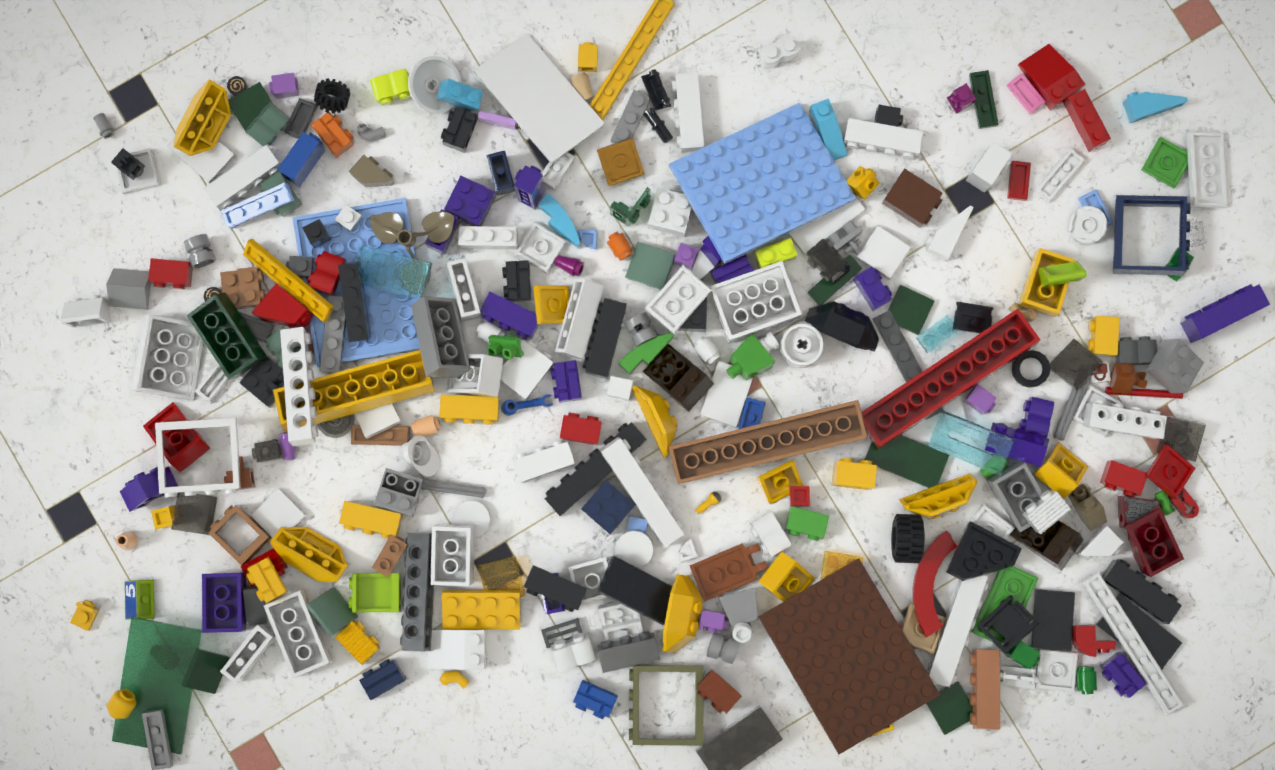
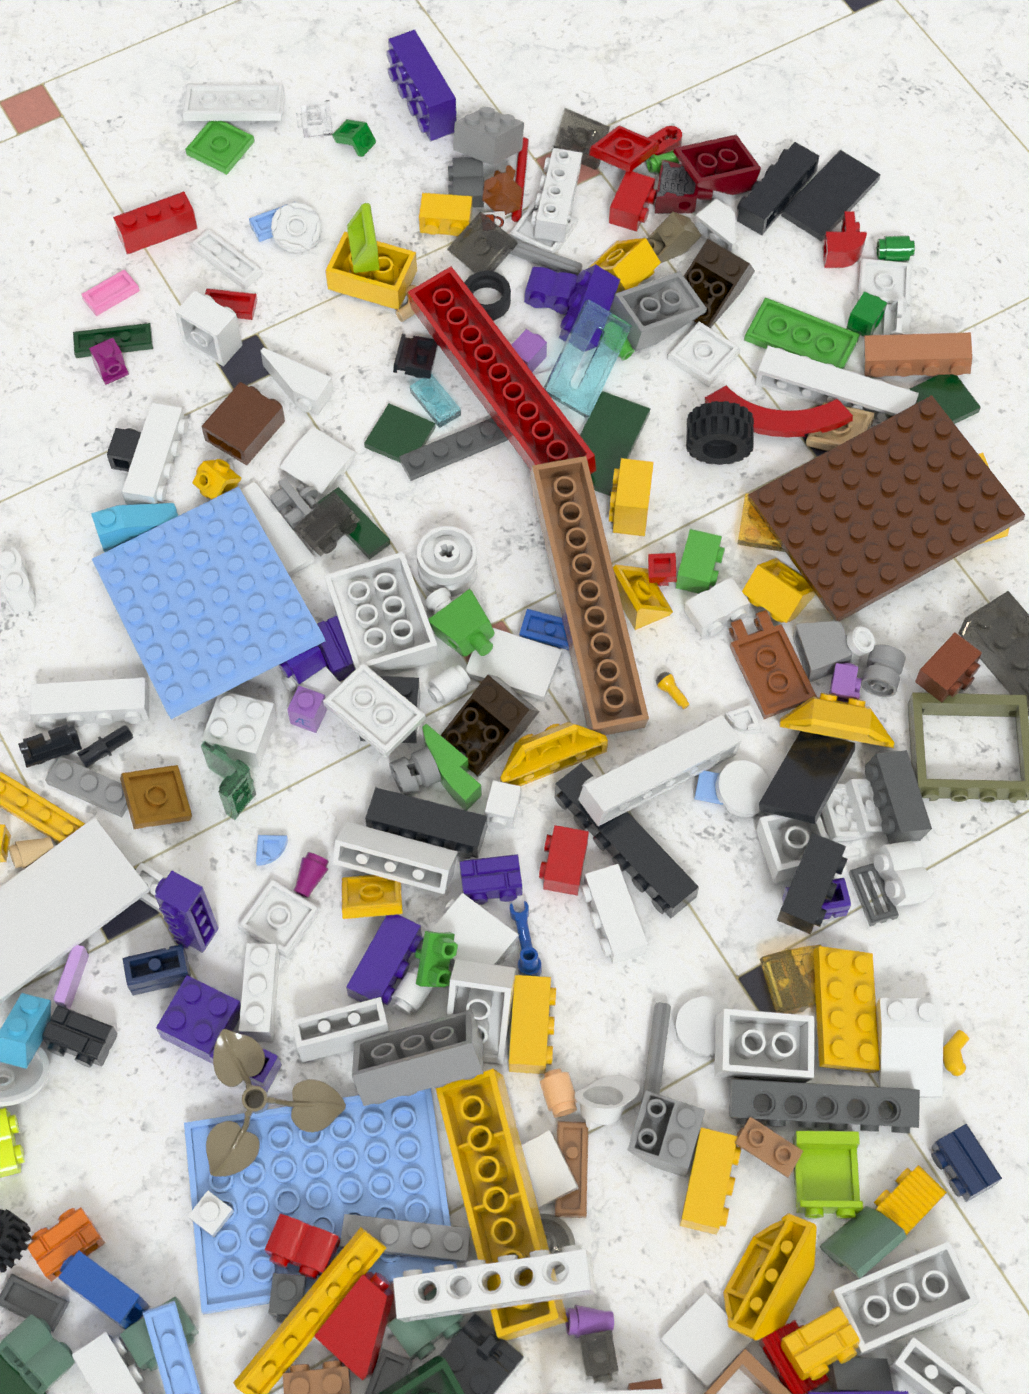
camera: 85 degrees left, 20 degrees down
(316, 233) = (233, 1263): black brick -> none
(354, 301) = (353, 1193): black brick -> none
(369, 134) = (71, 1185): light grey arm -> none
(370, 174) = (139, 1180): dark tan slope -> none
(393, 272) = (307, 1139): clear light blue plate -> none
(518, 281) = (330, 949): black brick -> none
(559, 219) = (242, 883): medium azure slope -> none
(595, 699) = (970, 844): blue brick -> none
(608, 507) = (683, 821): dark blue brick -> none
(619, 245) = (285, 802): orange brick -> none
(650, 266) = (318, 760): sand green slope -> none
(775, 253) = (313, 589): neon yellow brick -> none
(844, 325) = (416, 508): black wedge -> none
(872, 288) = (369, 472): dark purple brick -> none
(941, 498) = (661, 393): yellow wedge -> none
(981, 553) = (736, 351): black plate -> none
(1011, 622) = (827, 323): black container -> none
(1046, 511) = (680, 272): white brick -> none
(1051, 76) = (90, 259): red slope -> none
(1055, 616) = (818, 284): black tile -> none
(1123, 675) = (886, 210): dark purple brick -> none
(1132, 643) = (844, 198): white tile -> none
(1149, 104) = (141, 158): medium azure slope -> none
(1151, 201) = (314, 192): dark blue window -> none

